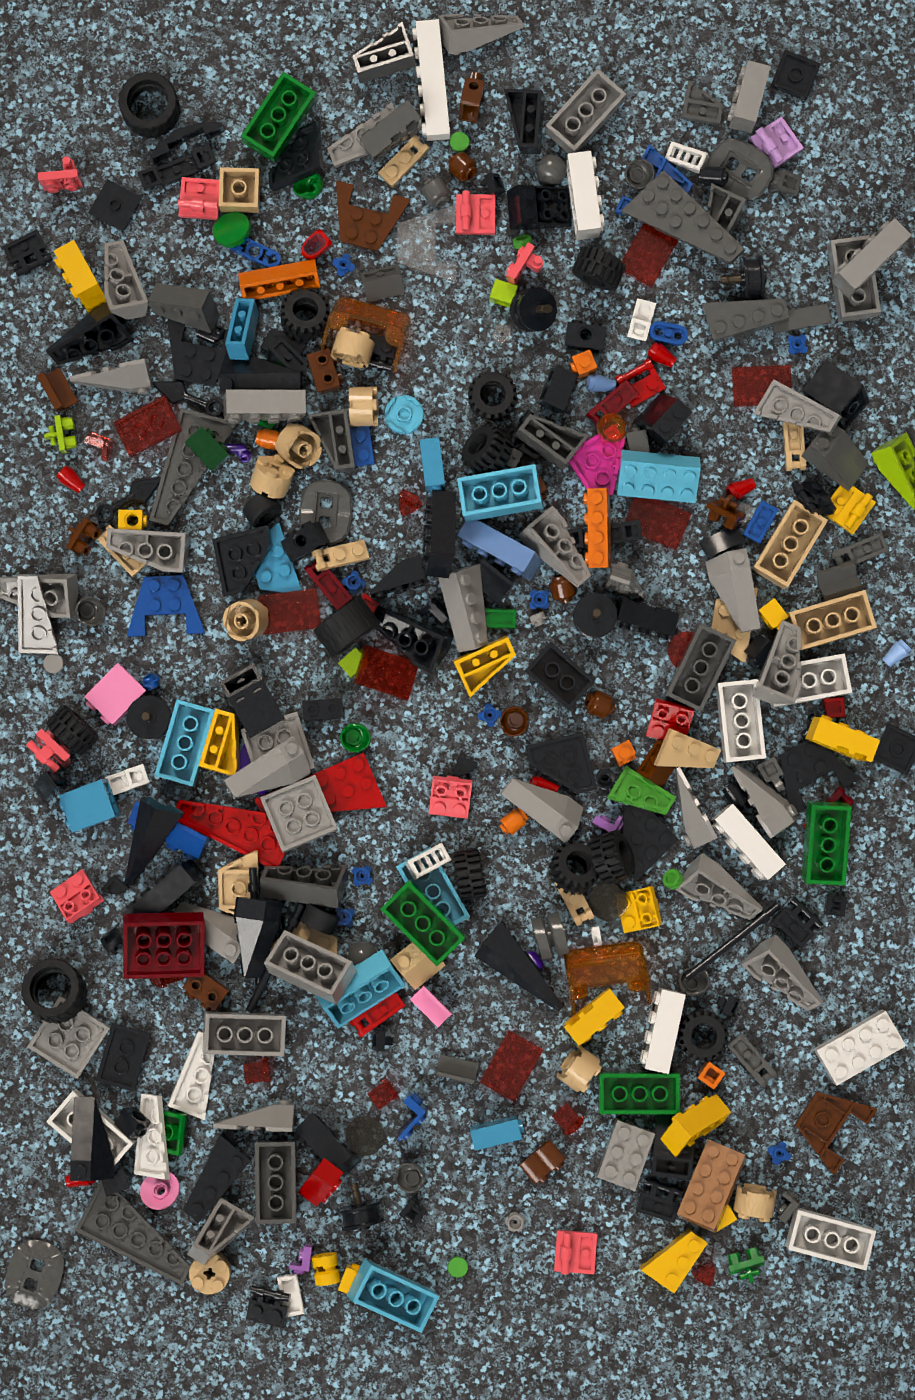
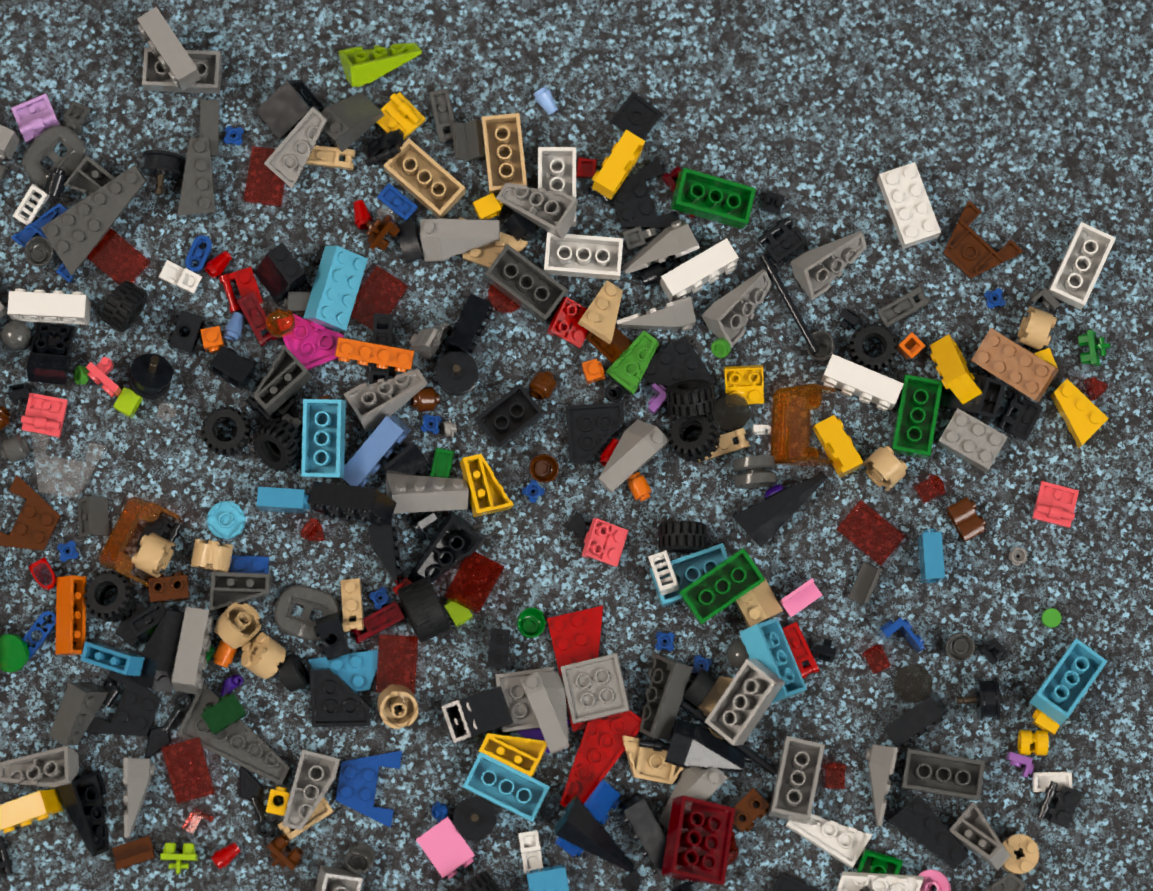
camera: 80 degrees left, 5 degrees down
(321, 1183) = (951, 730): red brick -> none

